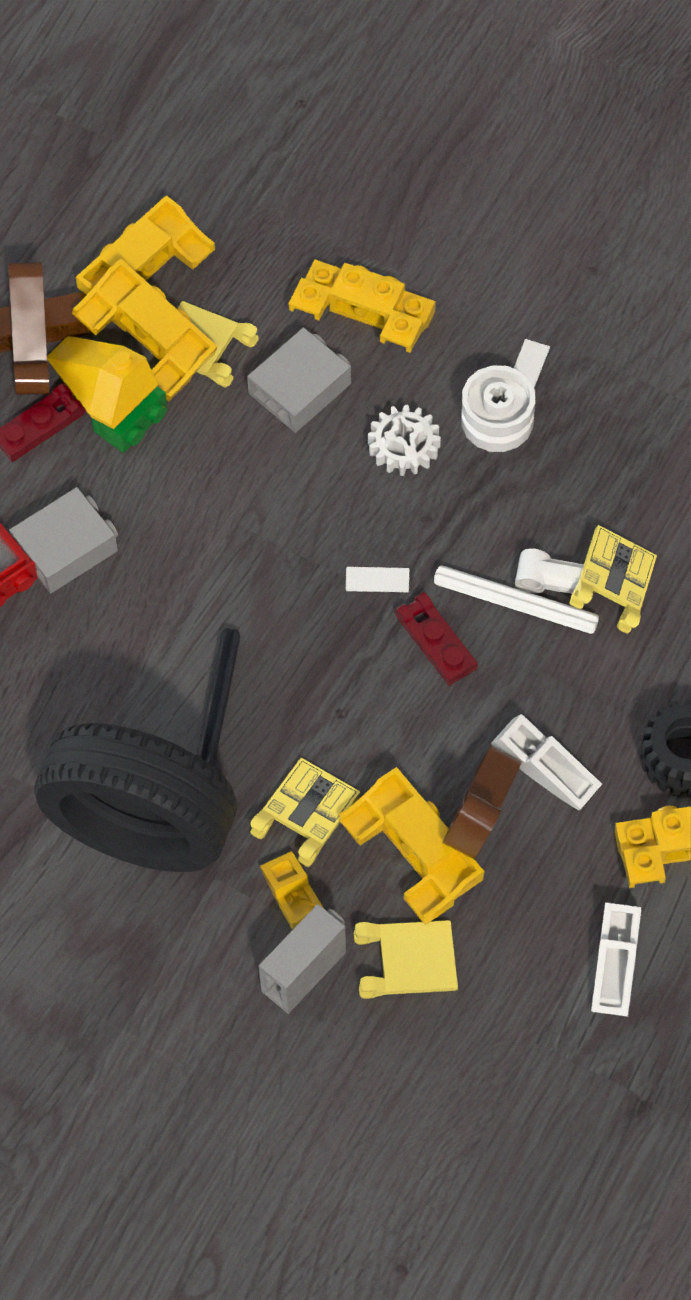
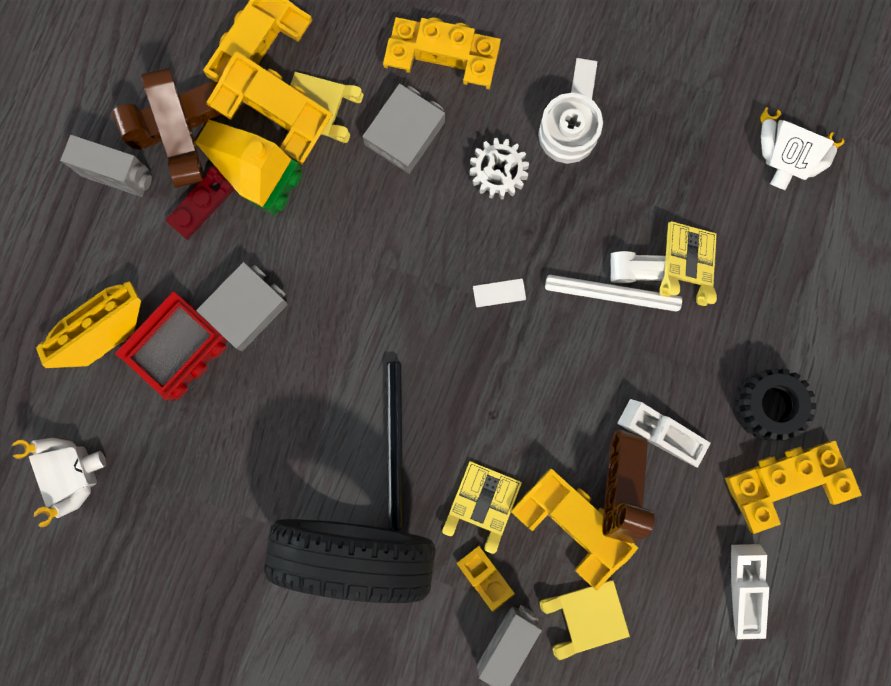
camera: 10 degrees left, 20 degrees up
(436, 639) = (557, 339): dark red plate -> none

